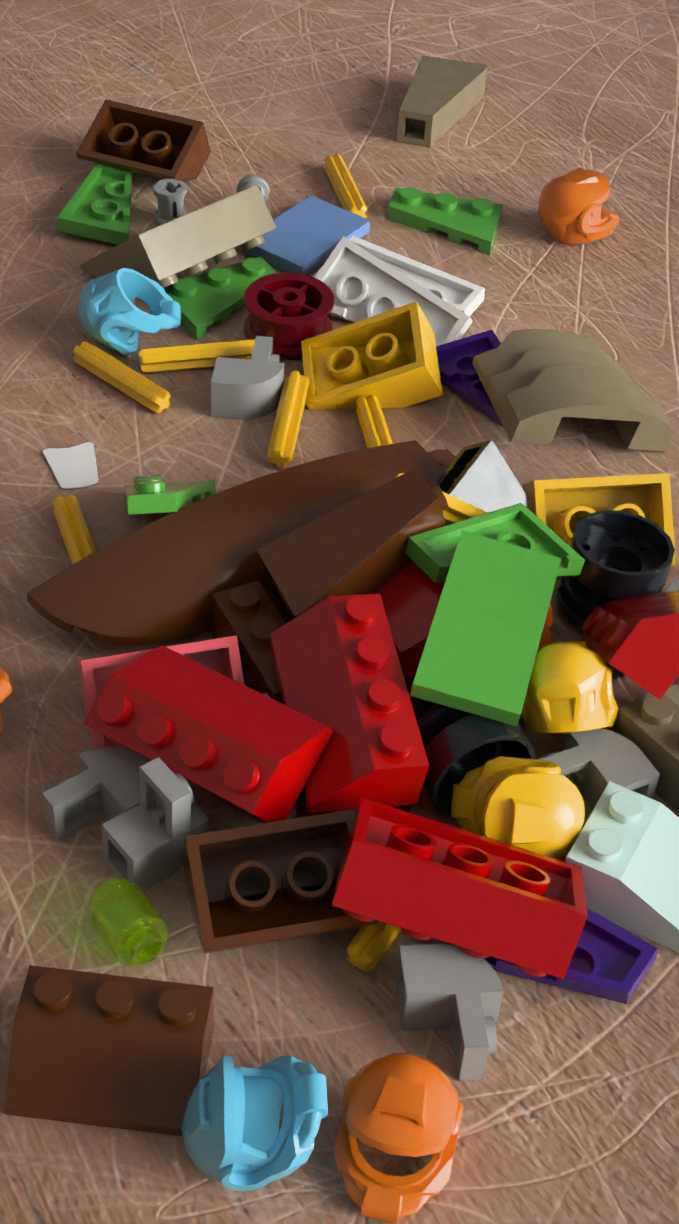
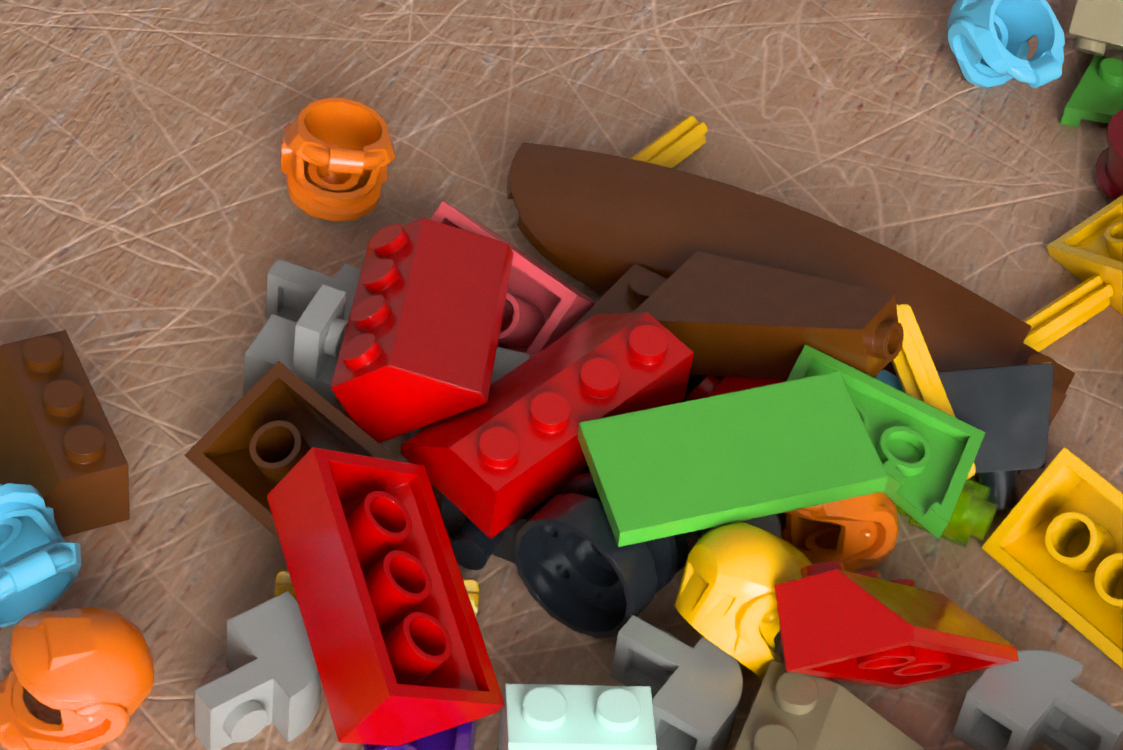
camera: 55 degrees right, 0 degrees up
(74, 465) = (766, 117): white sticker -> none
(121, 377) = (925, 90): yellow axle -> none
(128, 922) = (191, 394): clear neon green brick -> none
(153, 495) = (743, 168): bright green wing -> none
(192, 356) = (1027, 133): yellow axle -> none
(247, 386) = (1014, 186): light grey brick -> none
(288, 419) = (999, 236): yellow axle -> none
(526, 807) = (548, 624): yellow helmet -> none
(622, 560) = (1018, 573): black wheel -> none

